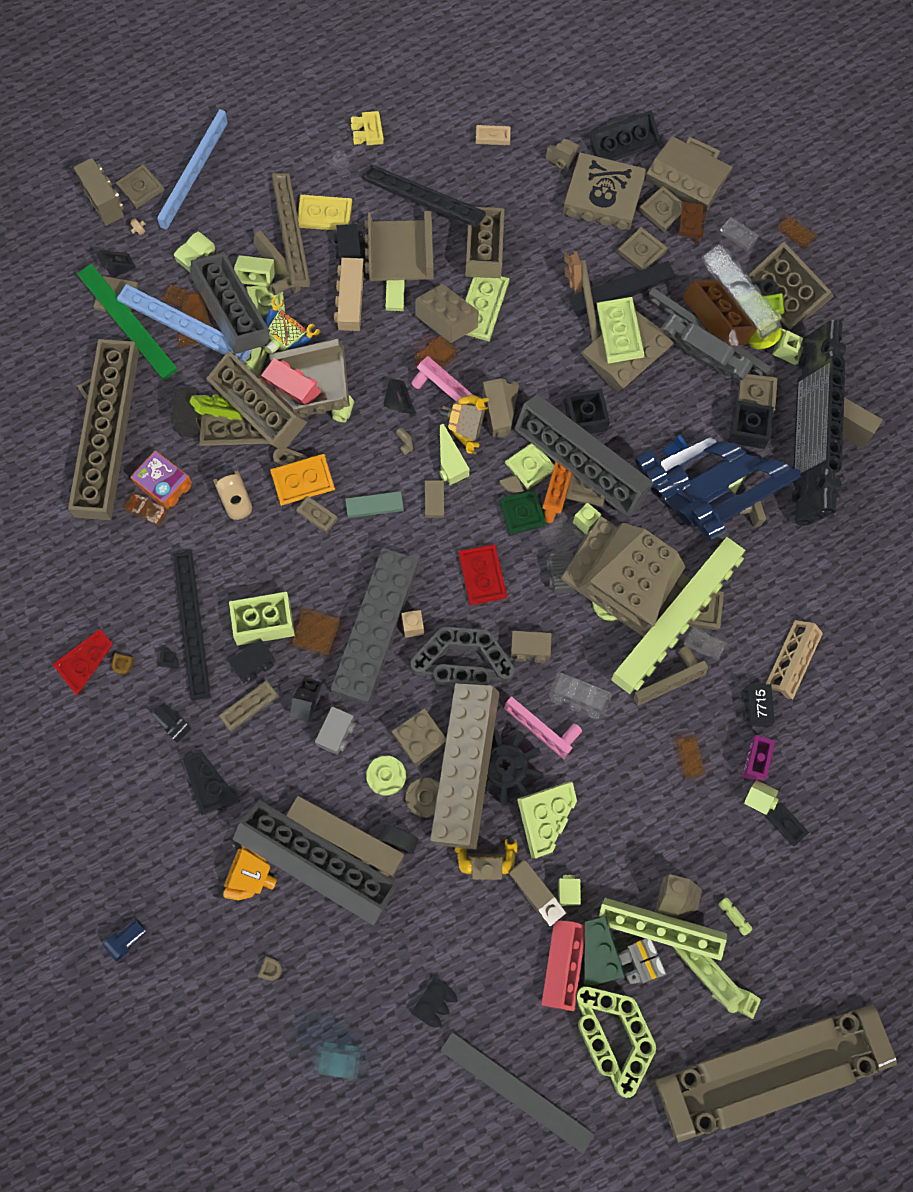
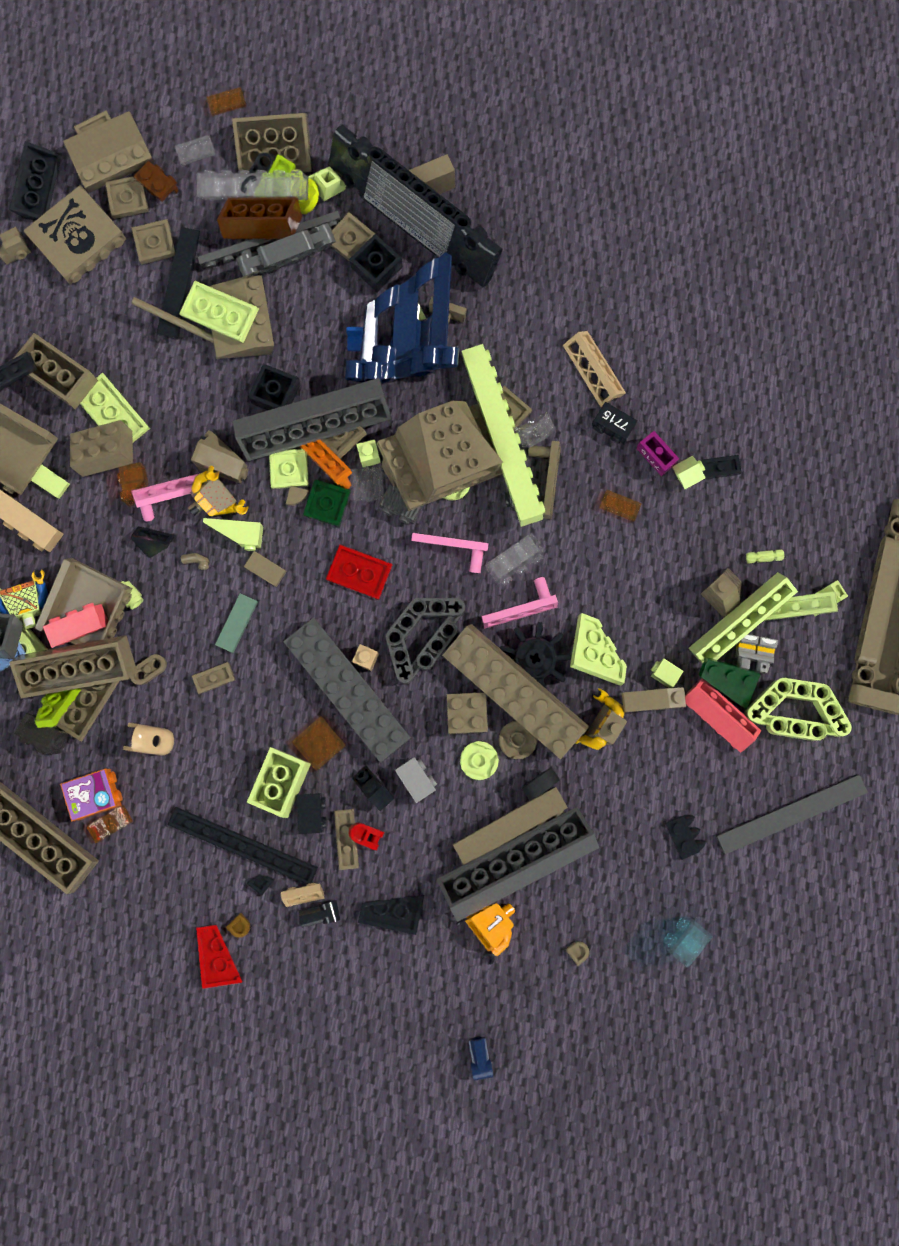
camera: 50 degrees left, 10 degrees up
(179, 698) = (302, 895): none -> tan plate
(259, 712) = (360, 832): none -> red plate
(302, 479) = (173, 671): light orange tile -> none
(530, 646) = (447, 572): dark tan brick -> none
(568, 657) = (477, 547): none -> bright pink piece
(574, 271) = (136, 313): medium nougat plate -> none

